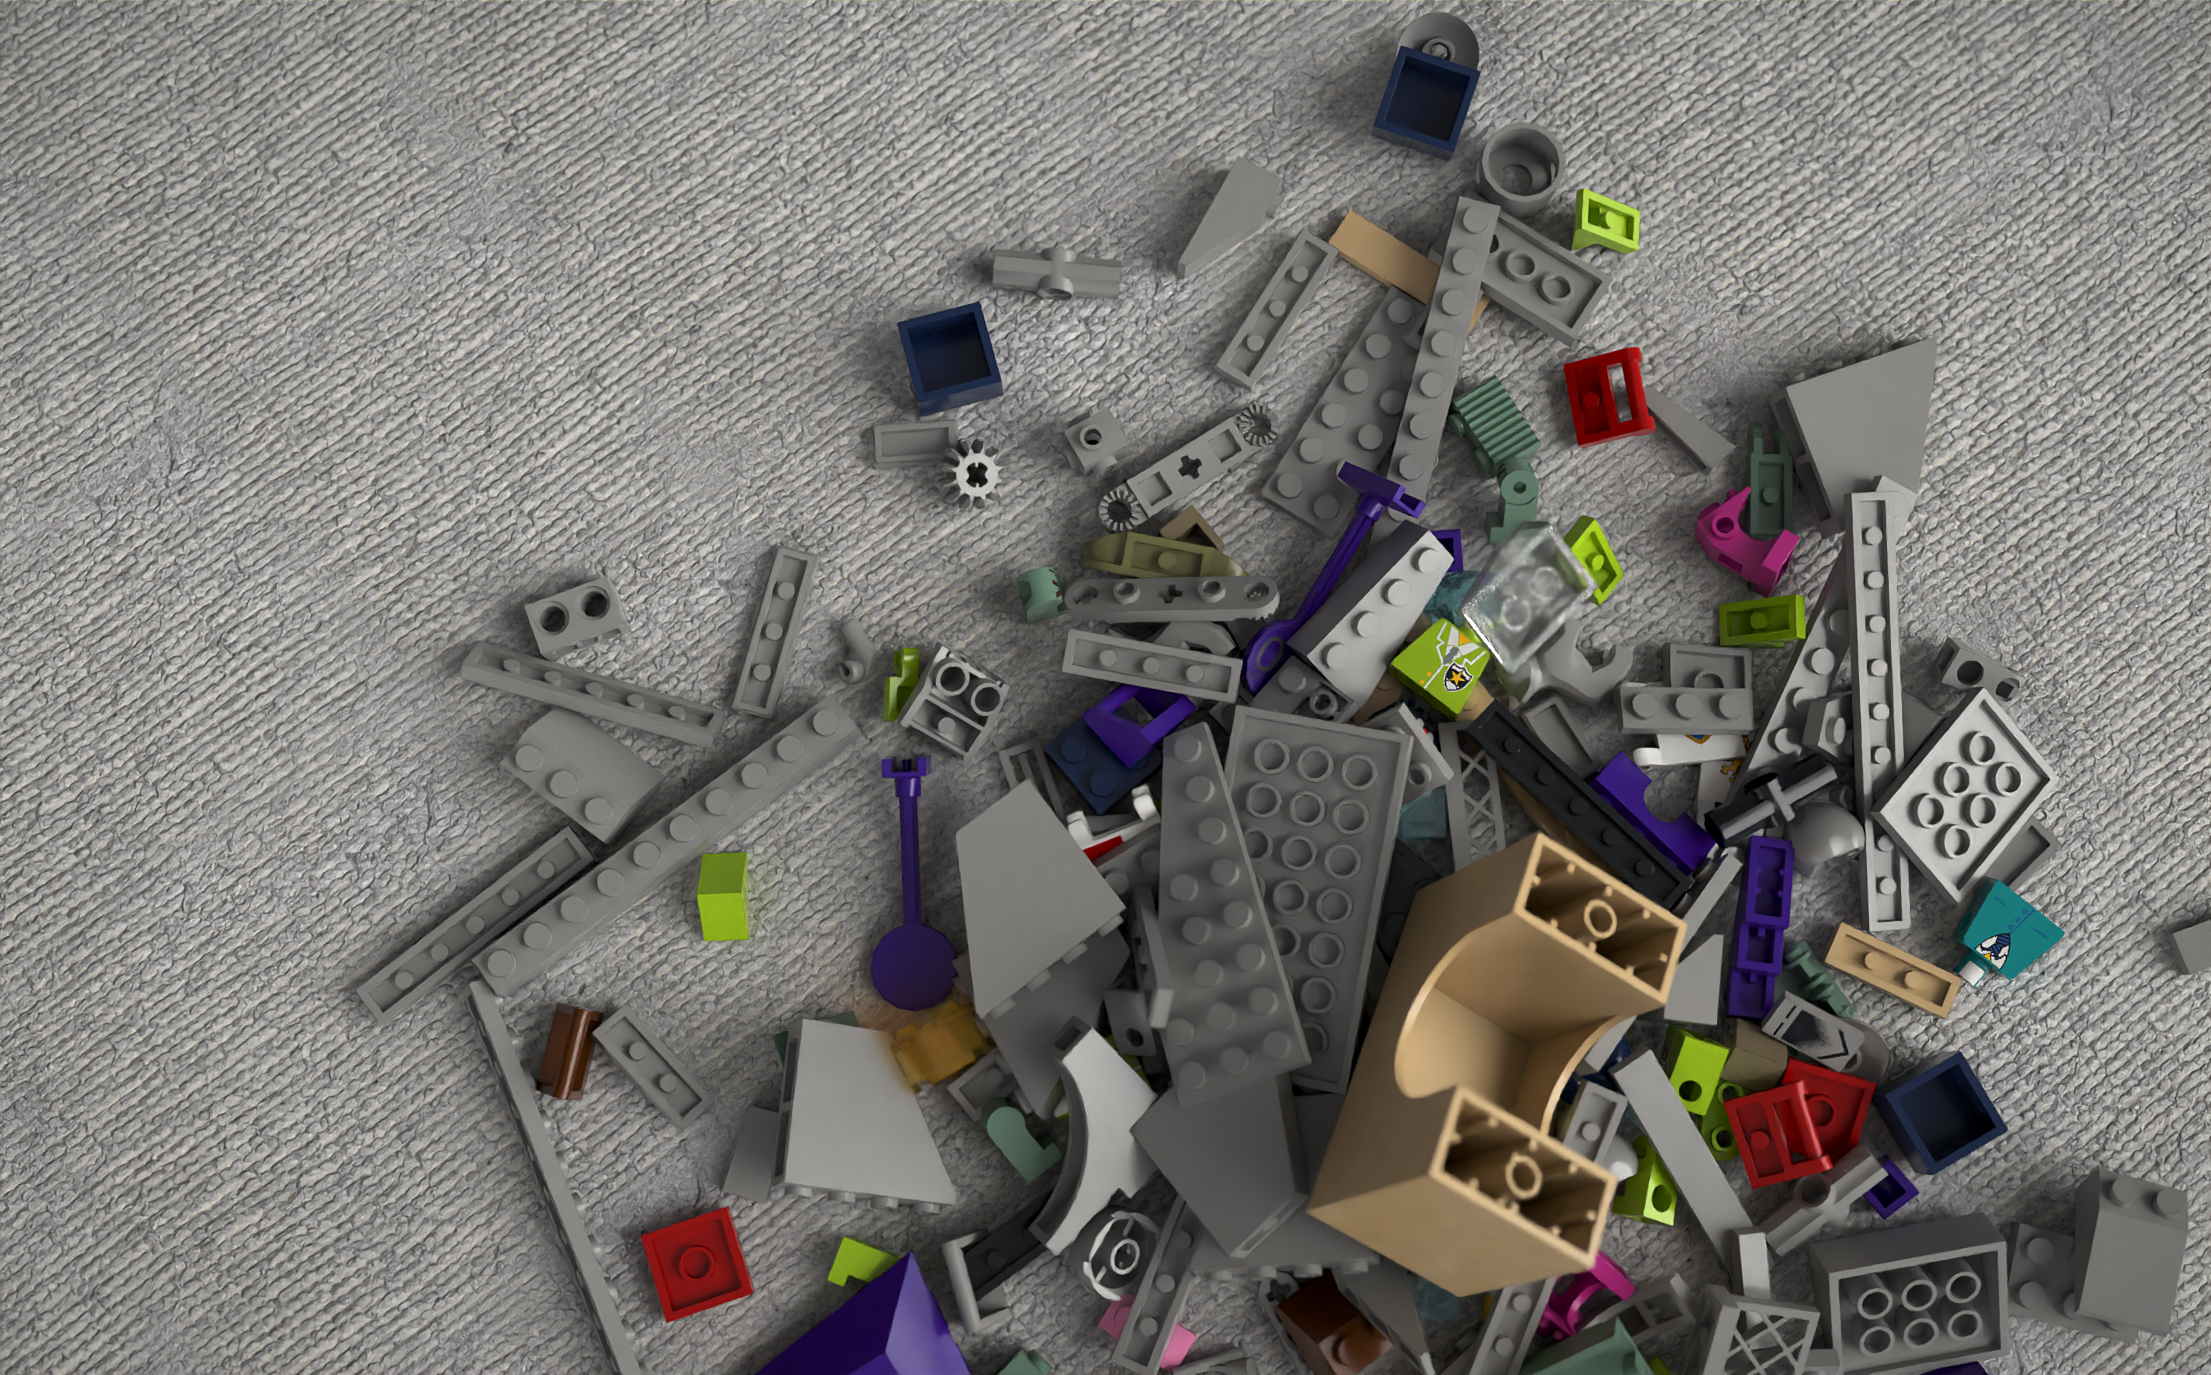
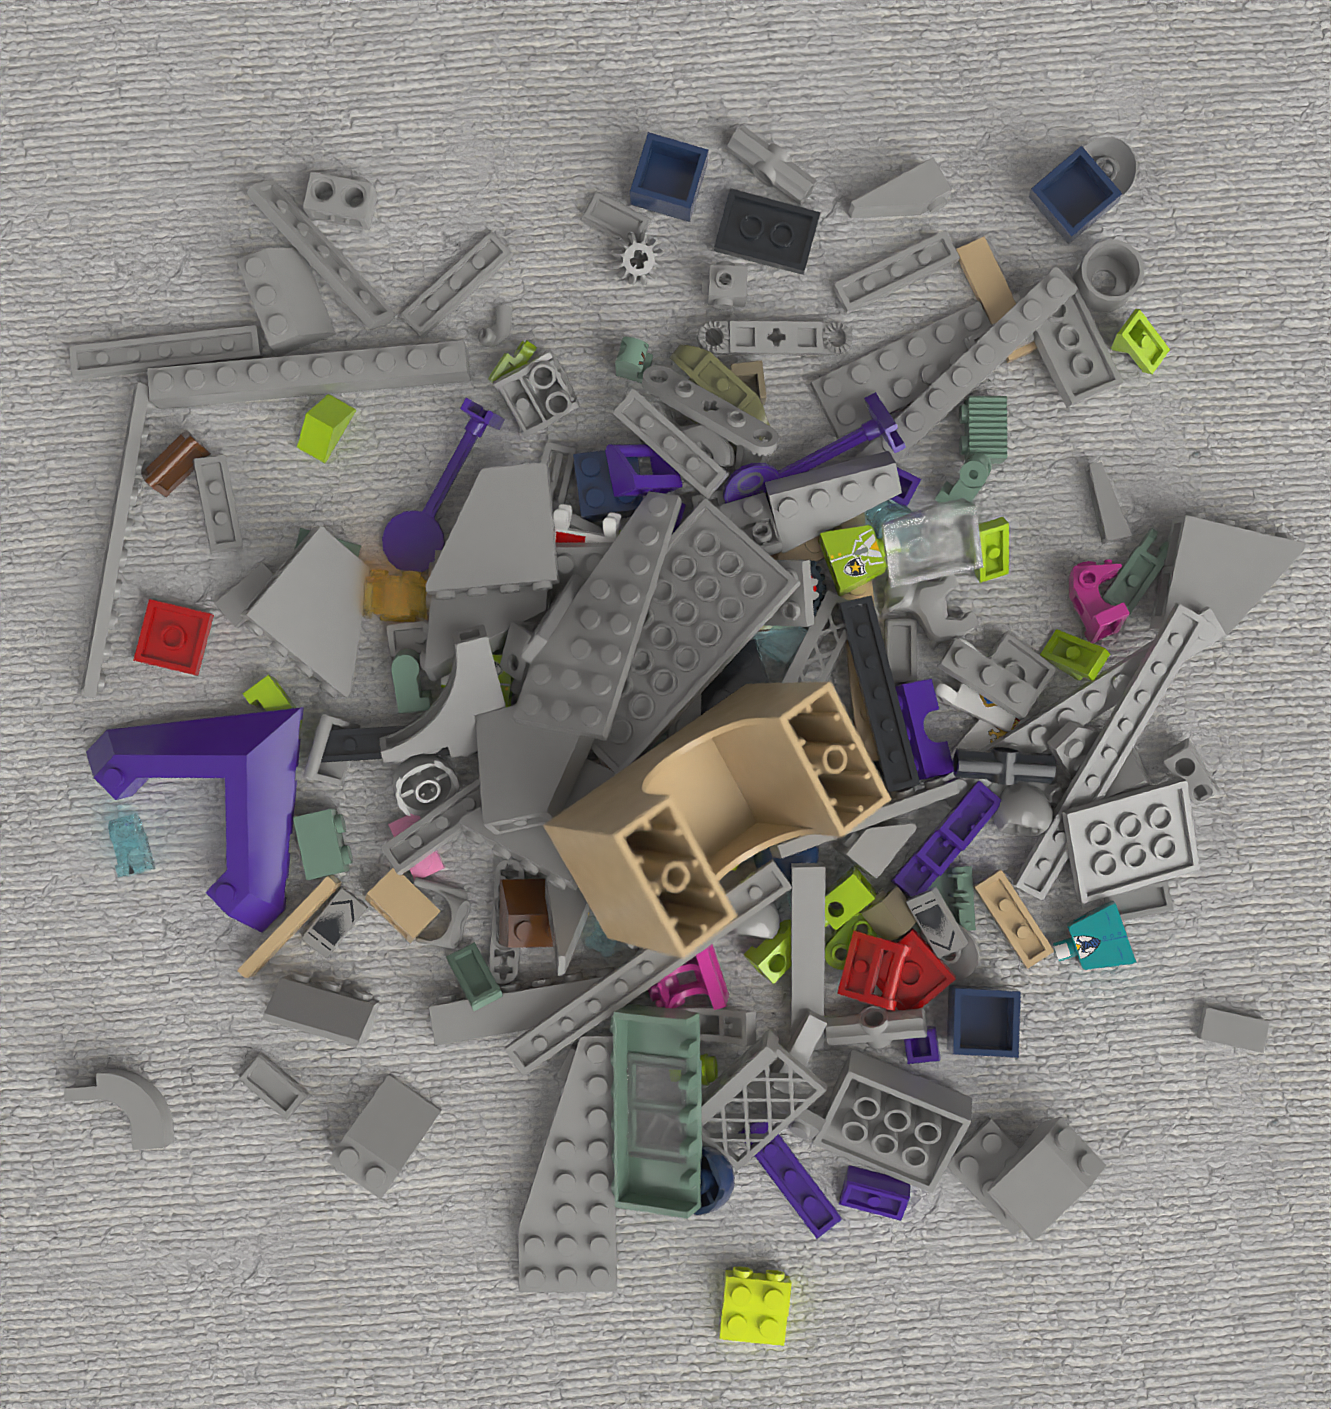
camera: 35 degrees right, 5 degrees up
(1100, 353) = (766, 231): none -> black plate
(1595, 402) = (1061, 450): red plate -> none

